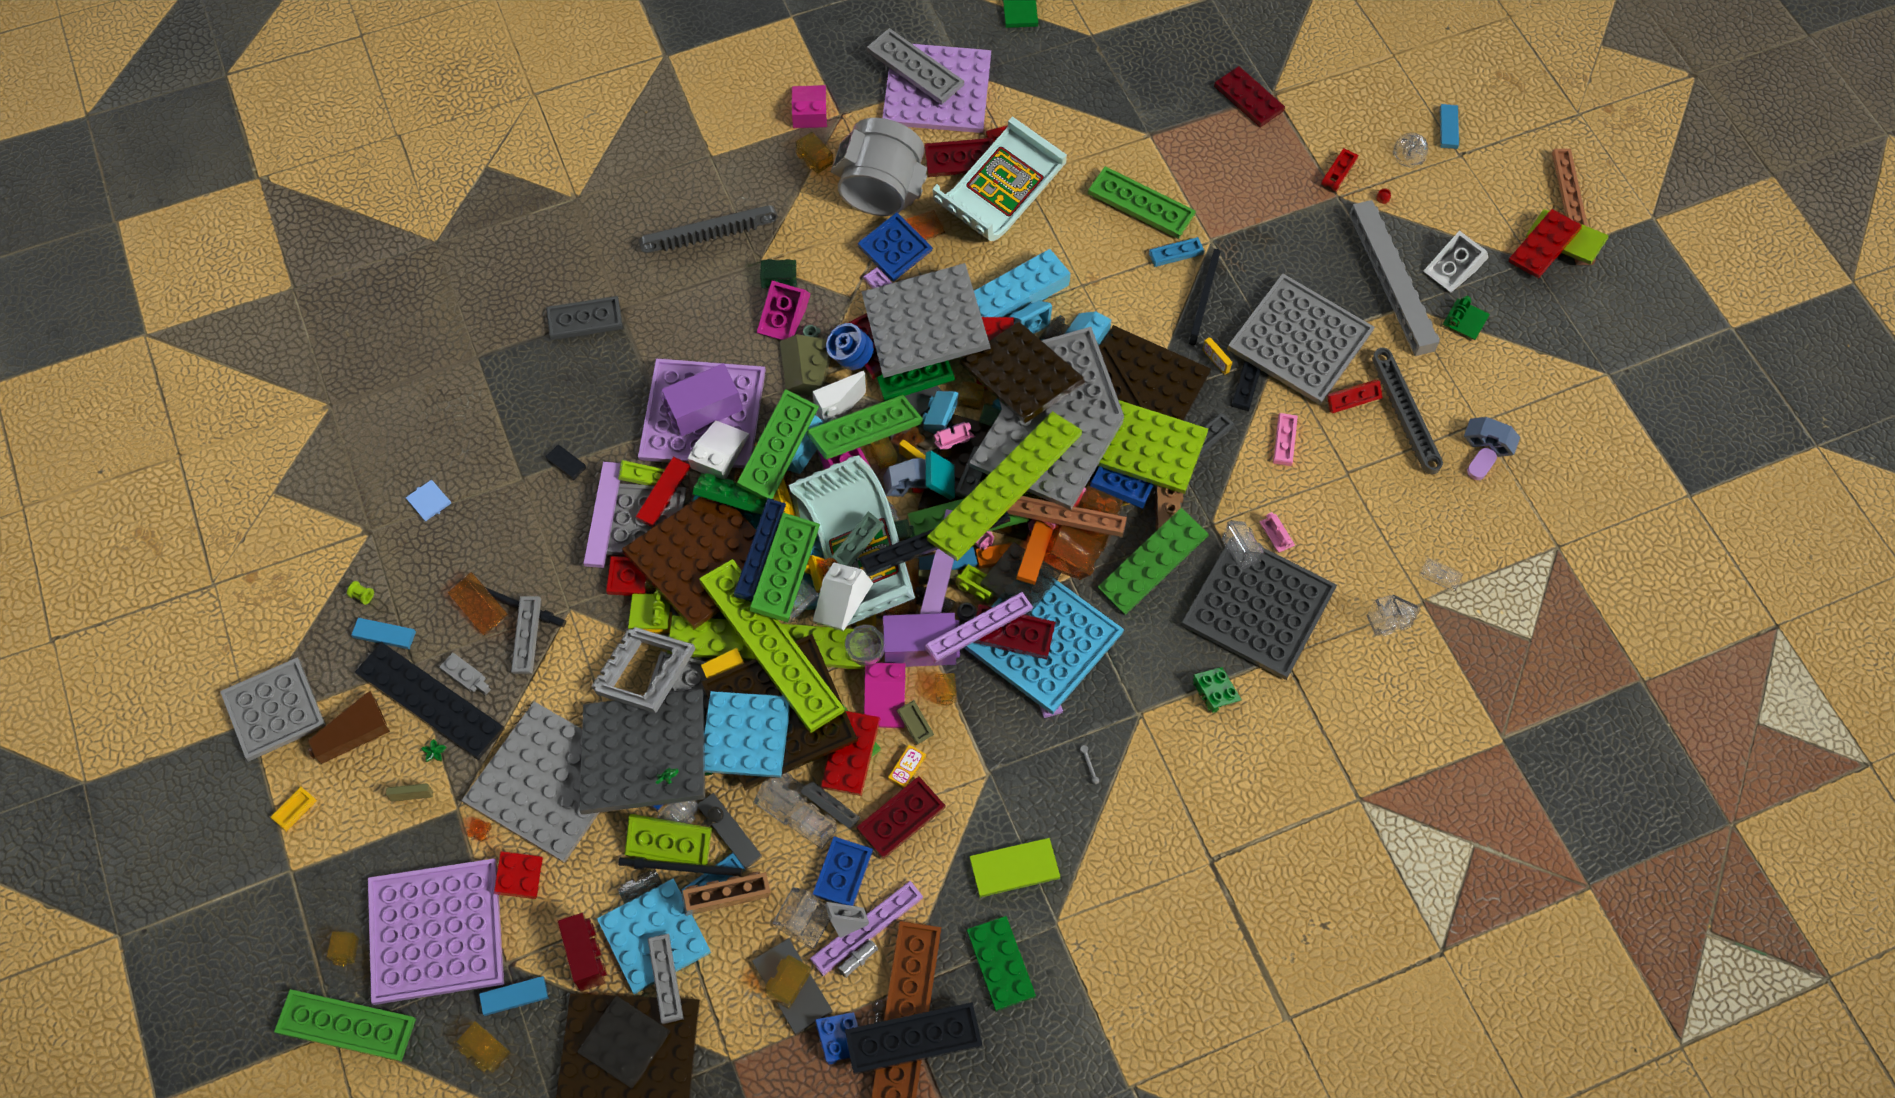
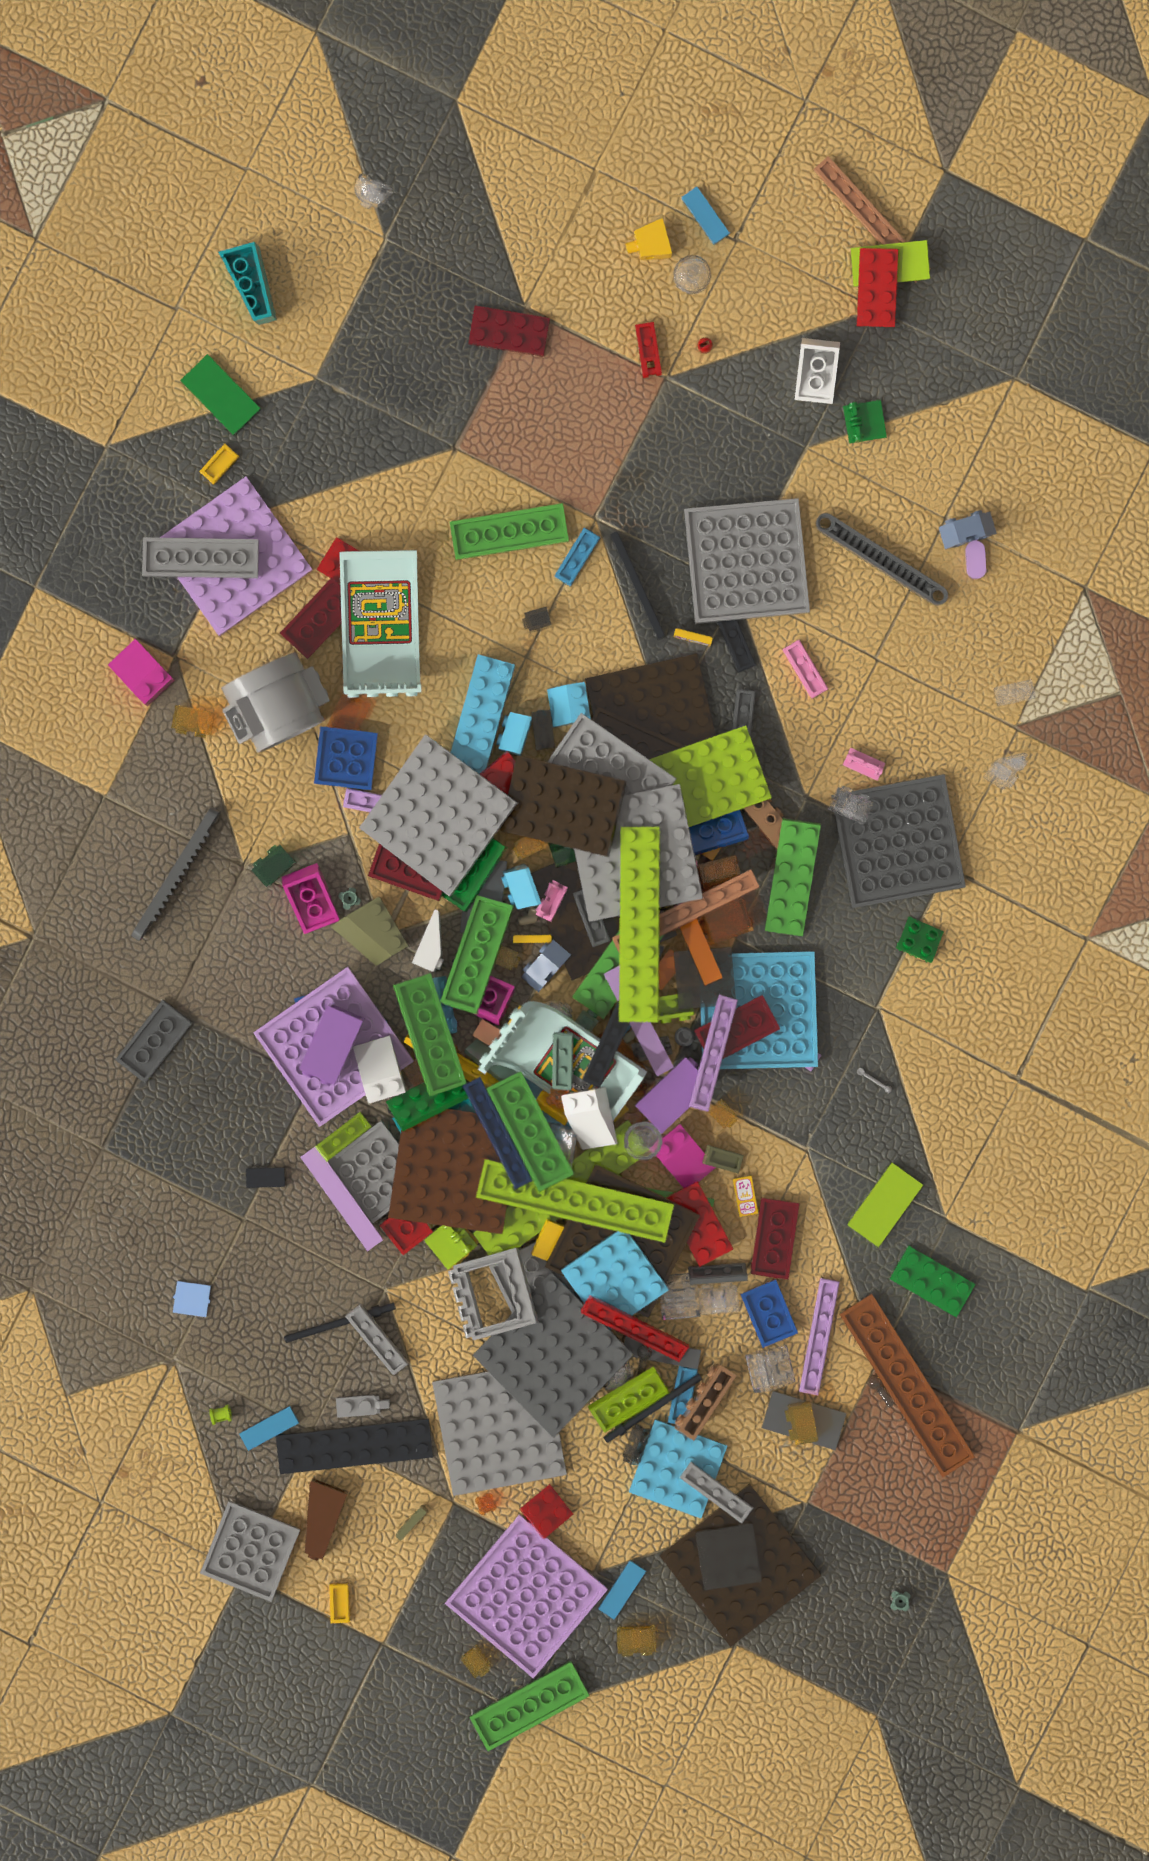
camera: 35 degrees left, 25 degrees up
(434, 751) = (395, 1478): green plant -> none
(477, 603) = (316, 1347): clear orange piece -> none
(582, 951) = (644, 1524): dark red brick -> none
(663, 492) = (369, 1141): red tile -> none
(667, 775) = (595, 1365): green plant -> none
(725, 784) = (634, 1328): none -> red tile
(833, 1036) = (867, 1427): blue hinge -> none
(846, 918) = (802, 1344): light grey slope -> none
(849, 346) = (400, 892): blue wheel -> none
(857, 958) = (832, 1364): light grey pin -> none
(913, 1038) = (920, 1388): black plate -> none
(918, 437) = (521, 930): clear orange plate -> none
(940, 475) = (572, 946): teal tile -> none
(980, 34) = (219, 464): none -> yellow tile
(1112, 265) = (537, 620): none -> clear smoke brick
(1354, 396) = (831, 582): red plate -> none
(1394, 278) = (775, 430): light grey brick -> none
(1396, 112) = (651, 242): none -> yellow torso

